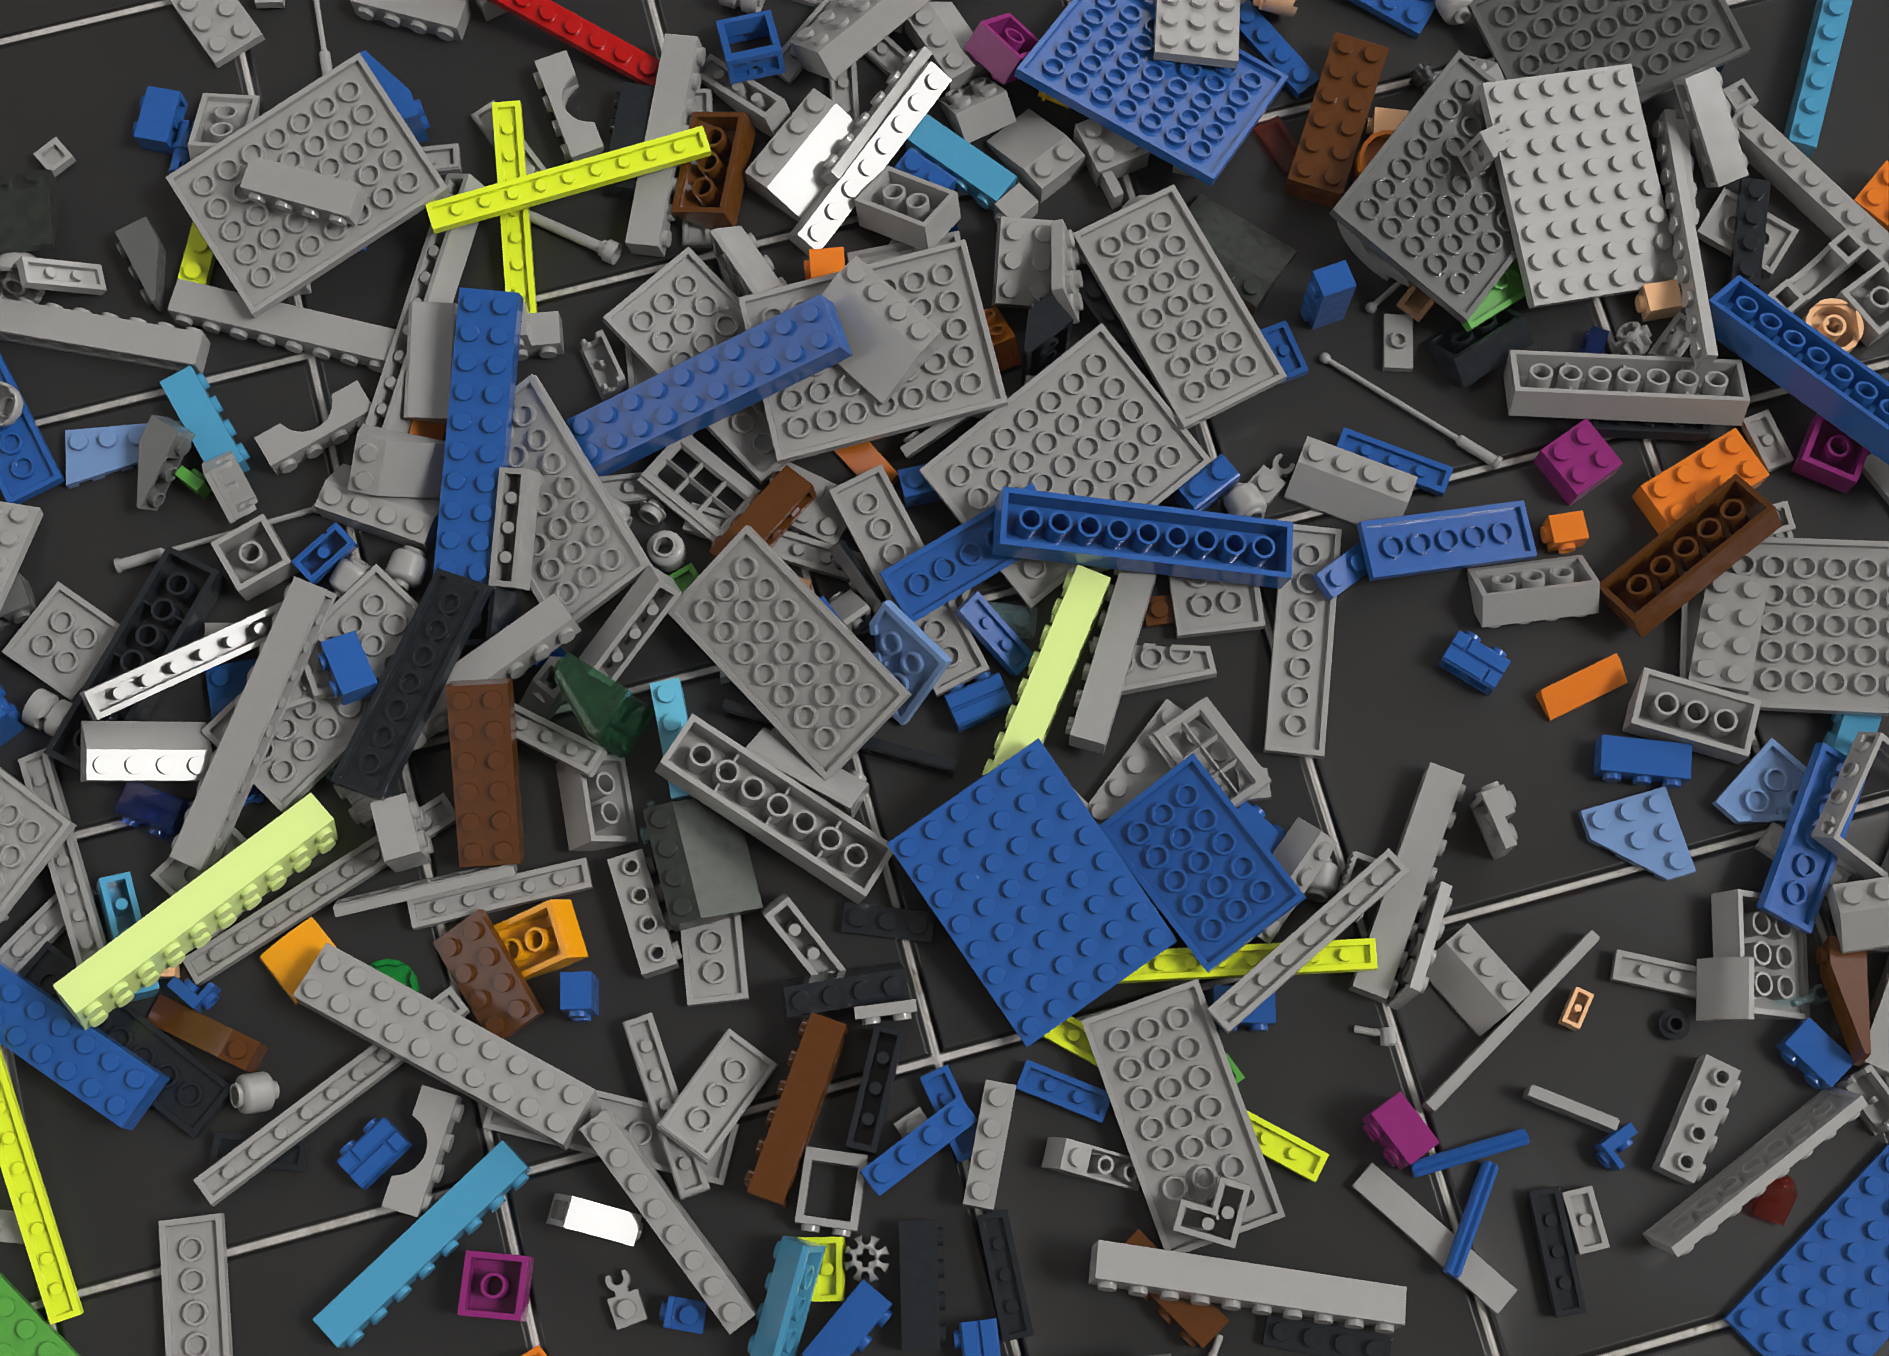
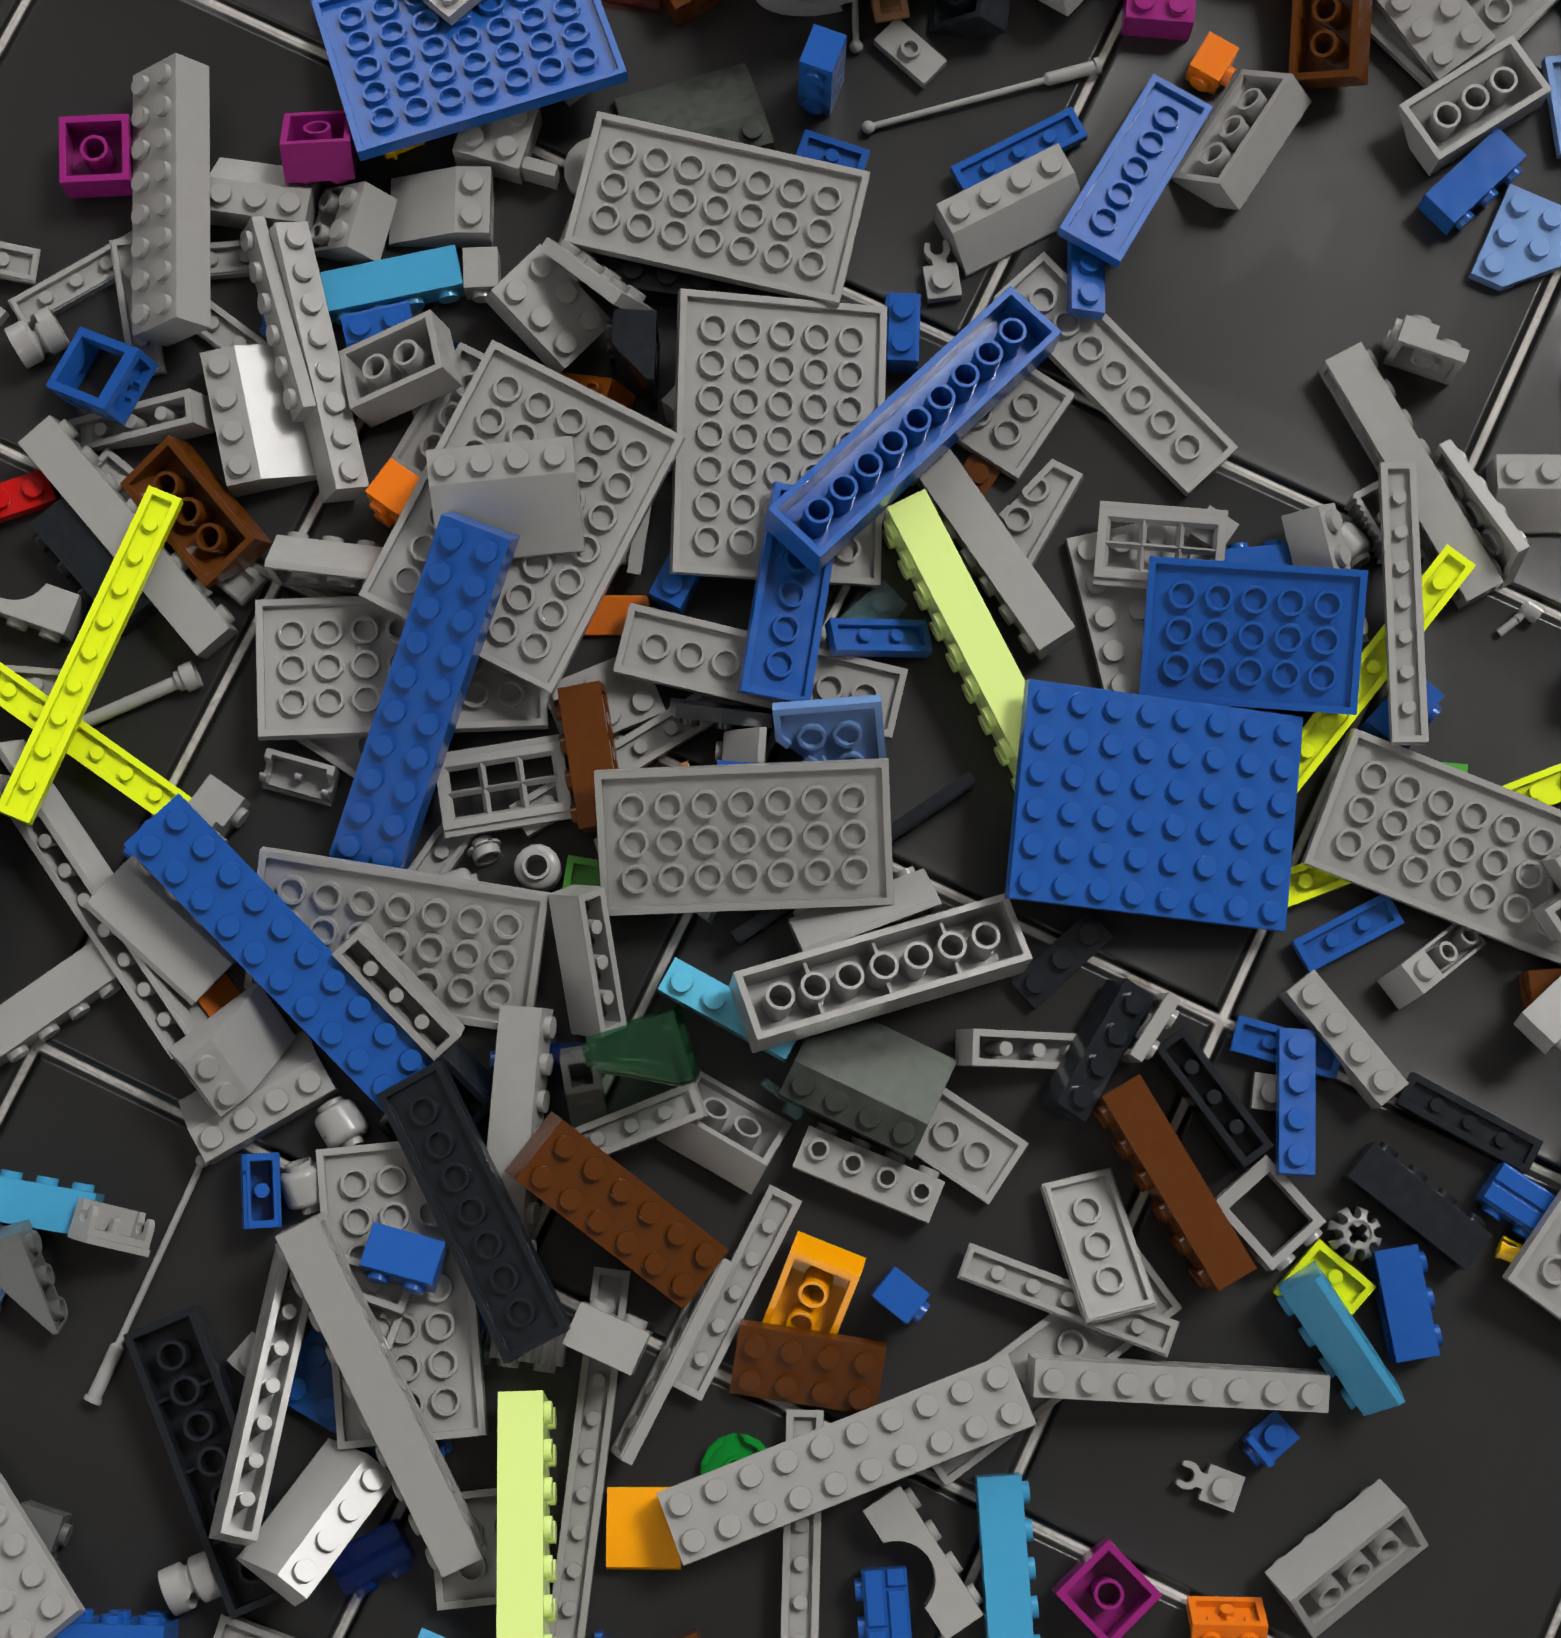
camera: 50 degrees left, 5 degrees up
(62, 641) = (127, 1512): light grey plate -> none
(194, 481) = (72, 1258): bright green plate -> none
(254, 557) = (204, 1261): light grey brick -> none
(288, 448) = (118, 1141): light grey arch -> none
(595, 1219) = (1116, 1452): slope -> none
(977, 701) = (926, 706): blue brick -> none
(1245, 500) = (946, 313): light grey head -> none
(1474, 661) = (1263, 244): blue brick -> none
(1582, 687) = (1362, 174): orange slope -> none

